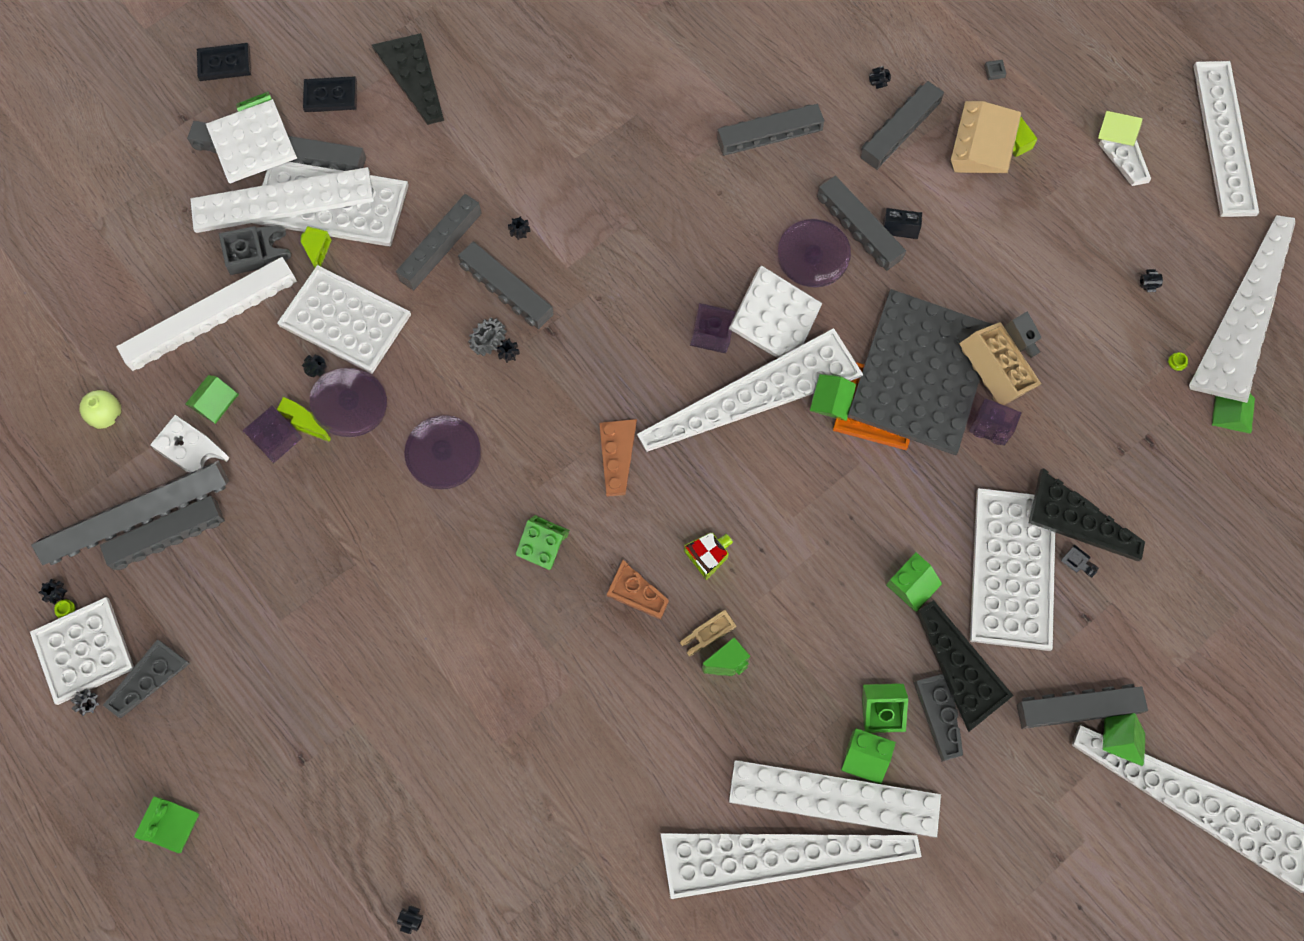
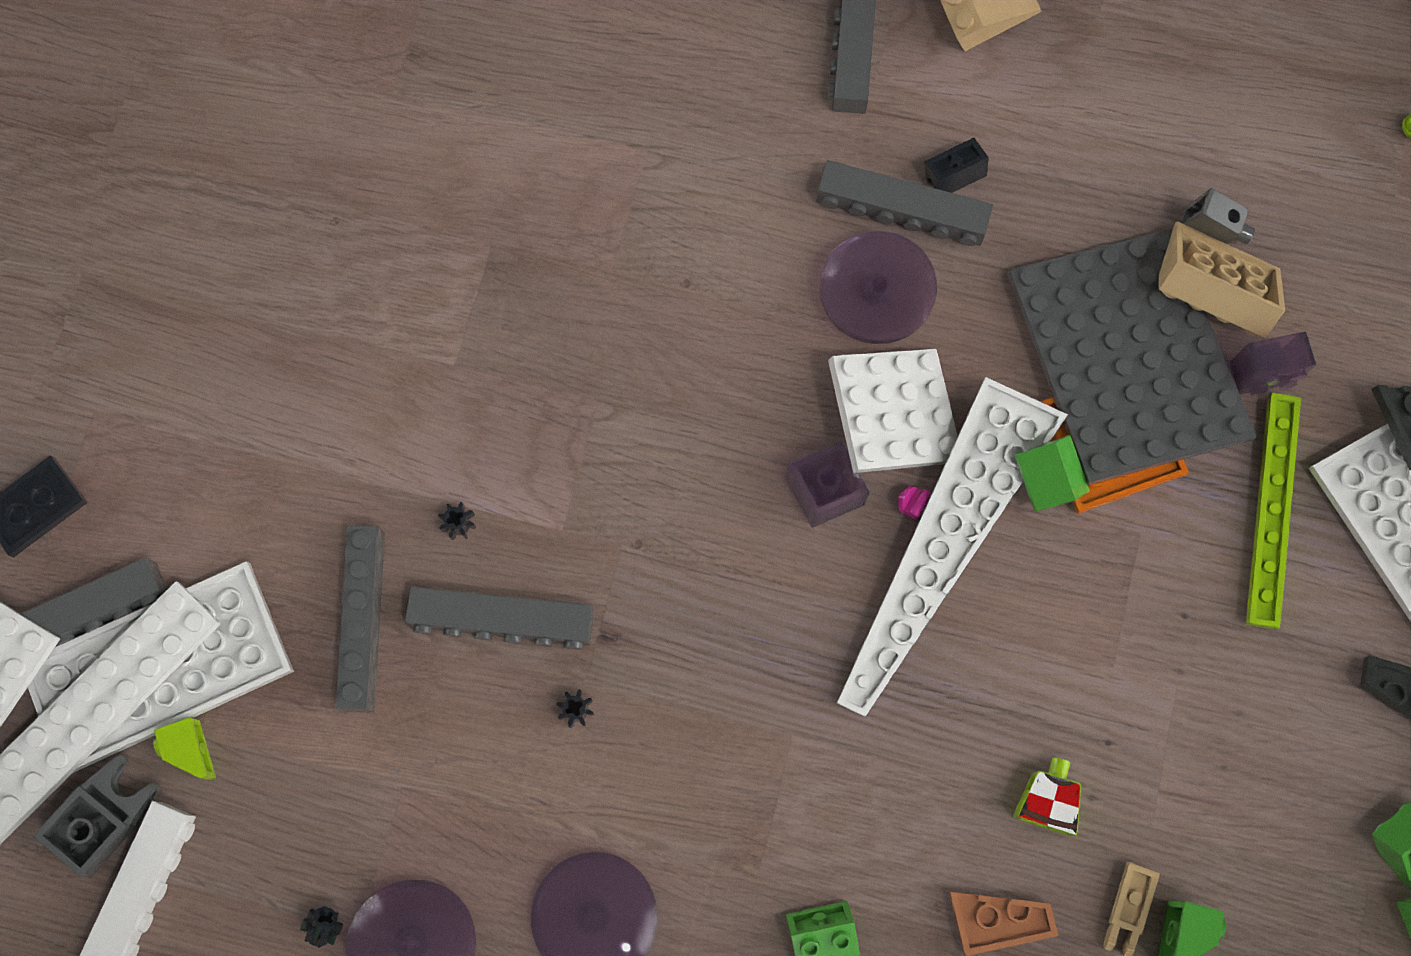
camera: 35 degrees left, 5 degrees up
(344, 319) = (309, 826): white plate -> none
(410, 68) = (121, 388): pearl dark grey wing -> none
(487, 336) = (533, 710): dark grey gear -> none
(617, 447) = (824, 742): nougat wing -> none
(750, 365) = (913, 501): none -> dark pink plate
(770, 129) = (689, 149): dark grey brick -> none
(915, 582) = (1326, 647): bright green slope -> none
(939, 497) = (1273, 511): none -> lime plate
(1151, 280) = (1312, 40): black gear -> none

